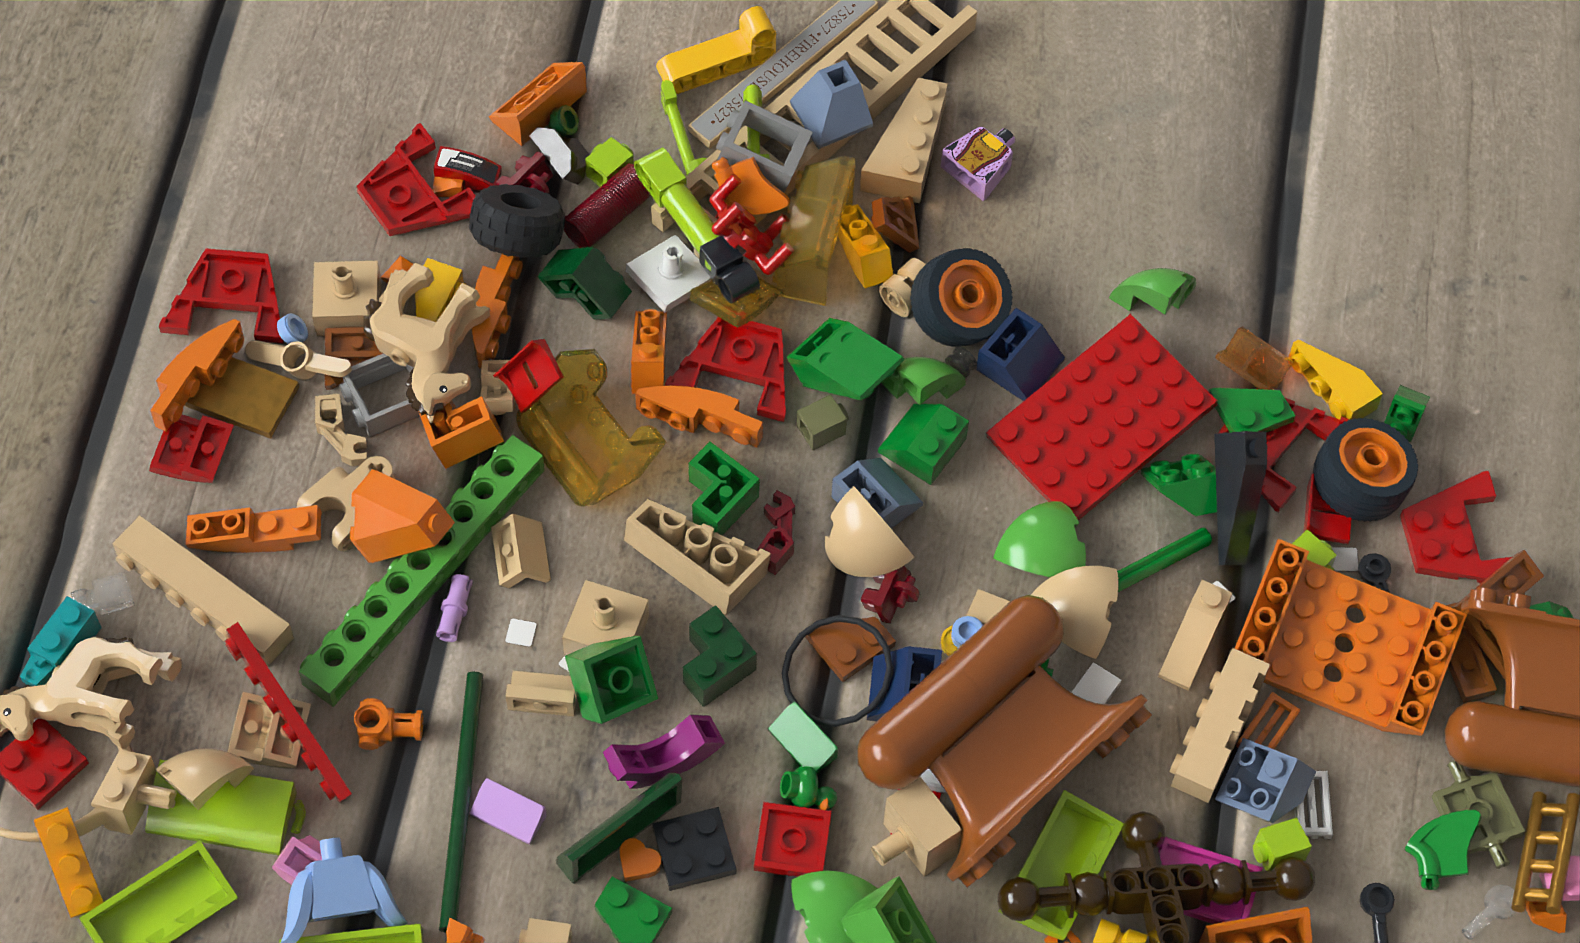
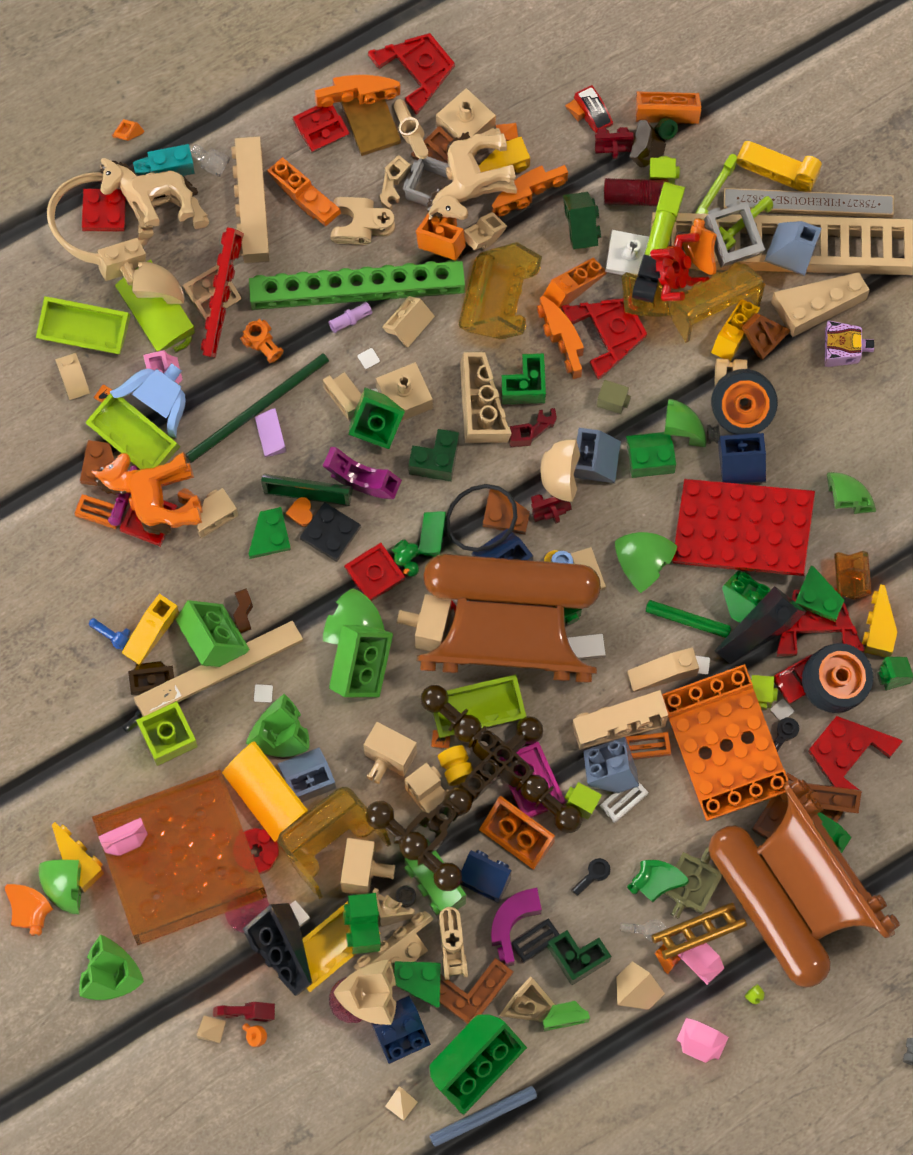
camera: 50 degrees right, 10 degrees up
(69, 862) = (64, 267): light orange plate -> none
(292, 328) = (425, 112): light blue tile -> none
(395, 518) = (362, 248): orange slope -> none
(401, 195) = (548, 93): red wing -> none
(517, 221) = (580, 158): black tyre -> none
(519, 378) = (497, 239): red piece -> none
(843, 360) = (652, 377): green slope -> none
(1084, 603) = (622, 600): tan brick -> none

